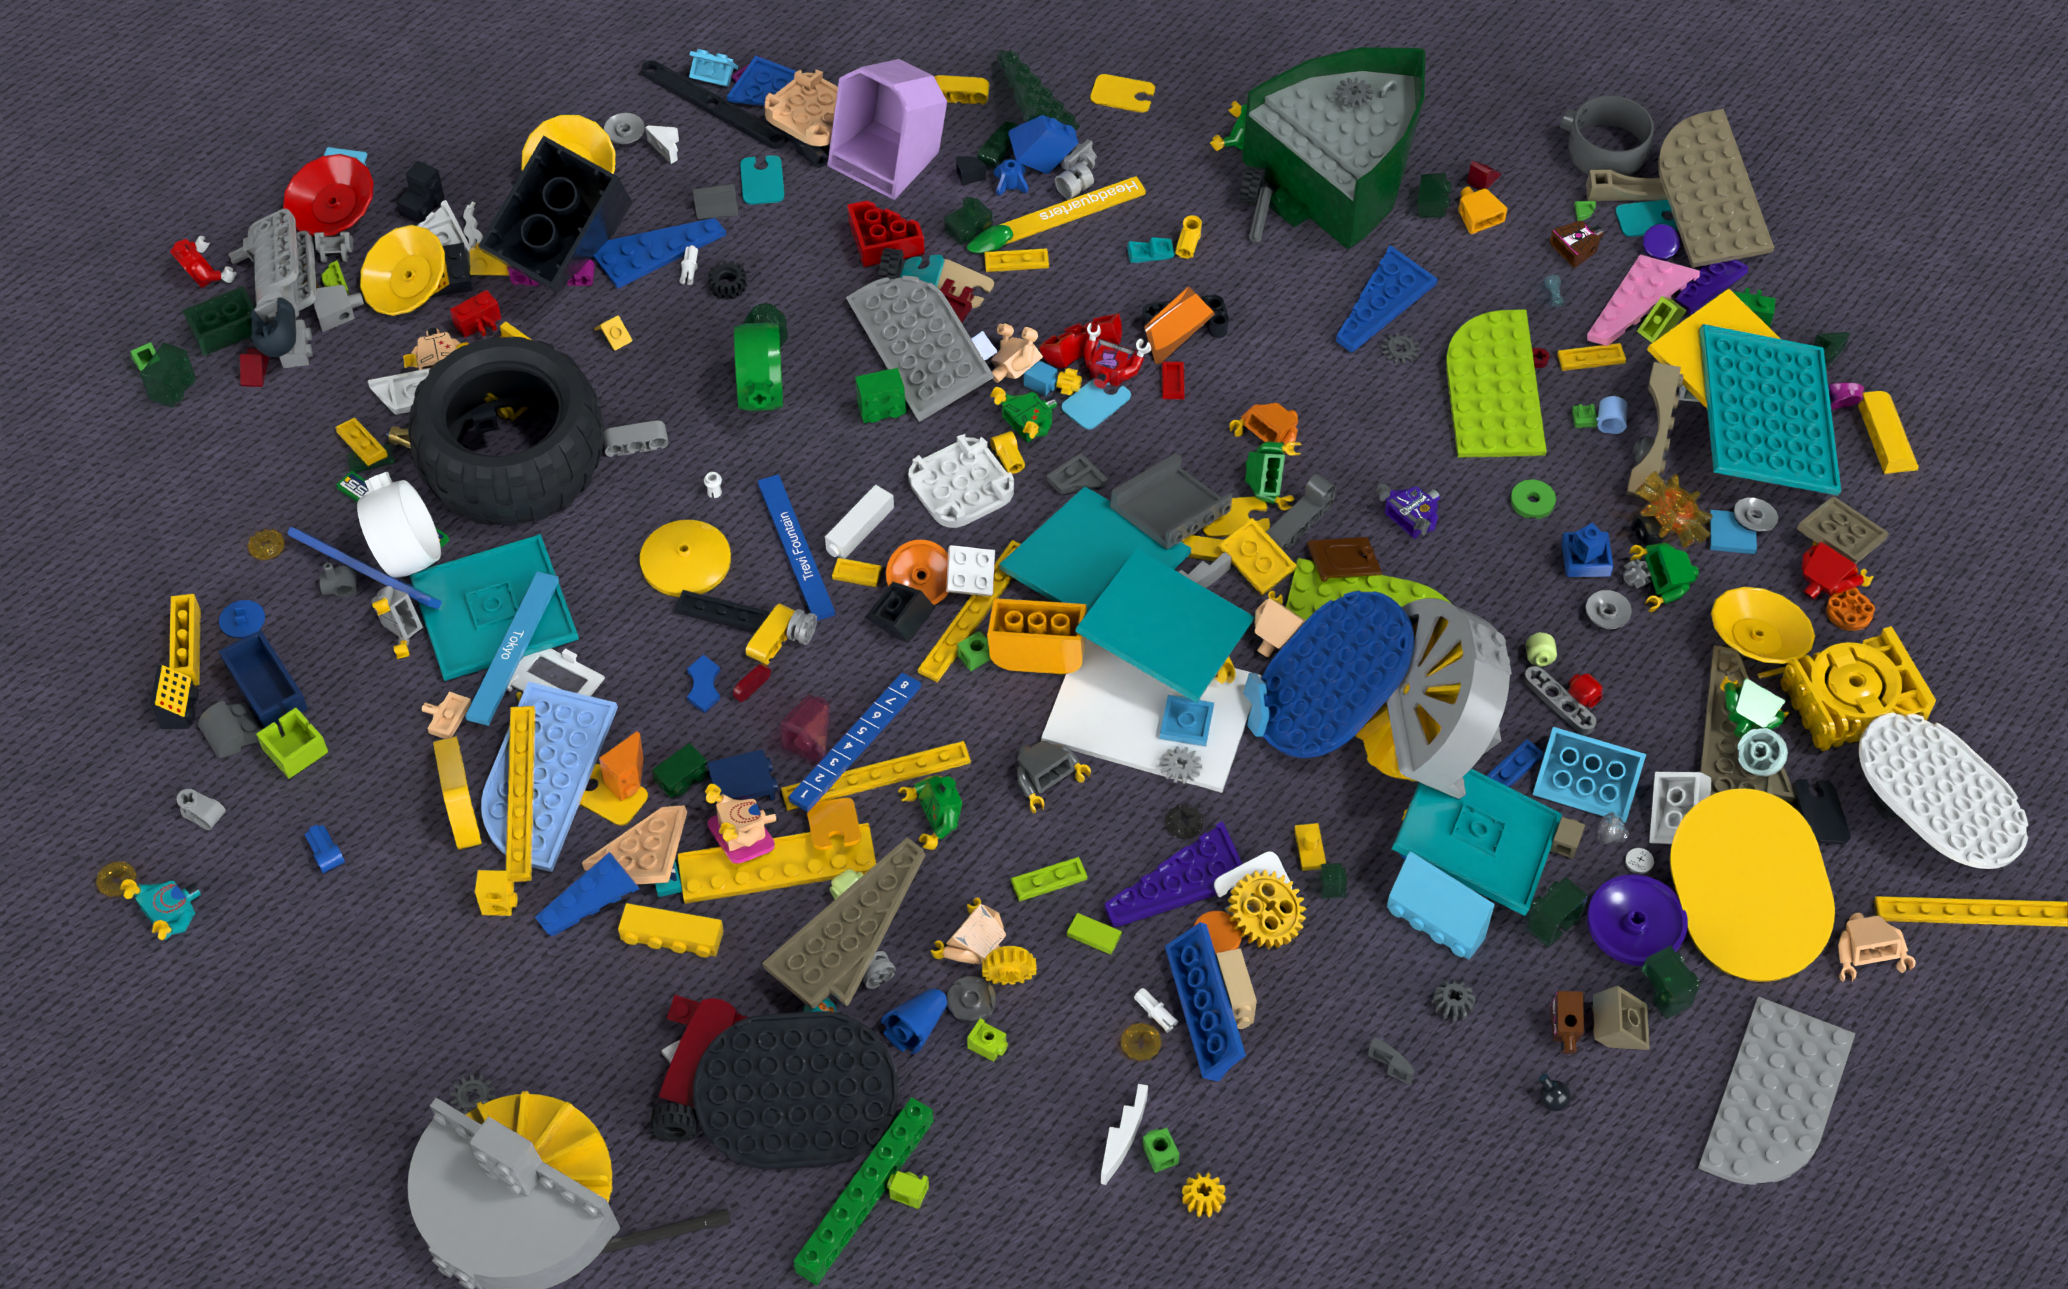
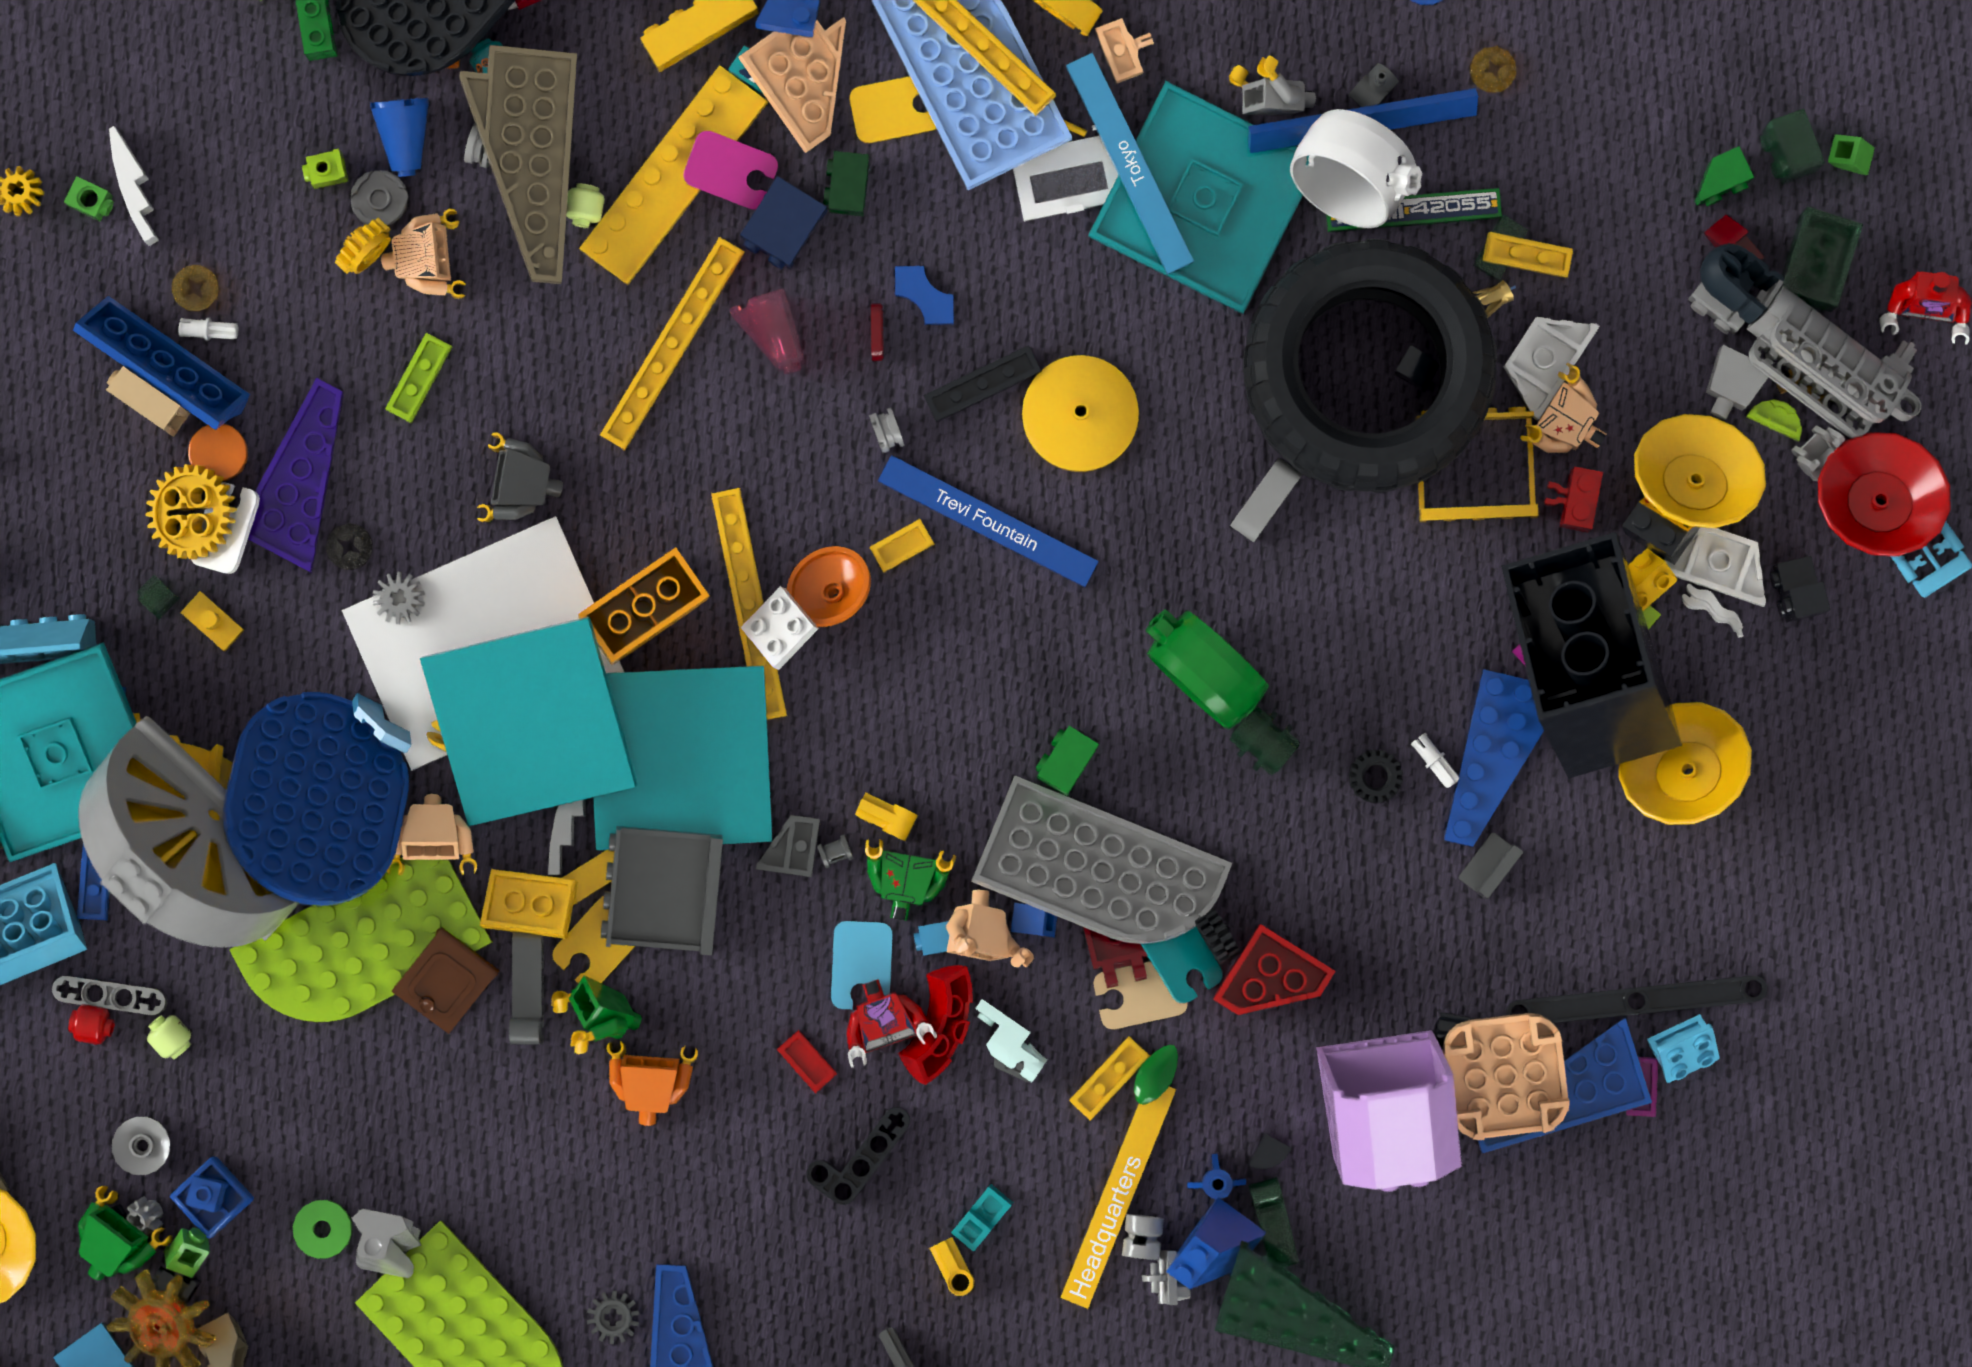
camera: 140 degrees right, 30 degrees up
(219, 397) = (1724, 174): none -> green slope
(615, 332) = (1425, 608): yellow bracket -> none
(623, 767) = (890, 129): orange slope -> none
(624, 128) = (1704, 871): light grey dish -> none
(664, 141) = (1635, 896): white slope -> none
(713, 482) = (1135, 506): white pin -> none
(739, 819) = (734, 172): light nougat torso -> none
(762, 185) = (1473, 941): teal piece -> none
(770, 635) = (910, 402): yellow beam -> none
(833, 818) = (664, 258): light orange piece -> none
(854, 742) = (720, 357): blue tile -> none
(859, 522) = (949, 598): white brick -> none
(901, 611) = (809, 529): black slope -> none
(940, 804) = (579, 357): green torso -> none
(961, 482) = (900, 740): white tile -> none
(963, 89) = (1390, 1261): yellow beam -> none
(968, 221) = (1201, 1079): clear green brick -> none
(972, 658) = (700, 541): bright green brick -> none
(1053, 305) = (1008, 1045): none -> light aqua plate
(1054, 456) = (835, 851): none -> dark grey bush
(1069, 381) = (903, 957): yellow gear -> none
(1094, 933) = (329, 358): lime tile -> none
(1176, 324) = (857, 1127): orange sticker -> none
(1186, 720) = (428, 639): dark azure tile -> none
(1411, 508) = (424, 1100): torso -> none
(1502, 454) = (384, 1241): none -> light grey piece
(1626, 534) = (187, 1252): none -> bright green brick

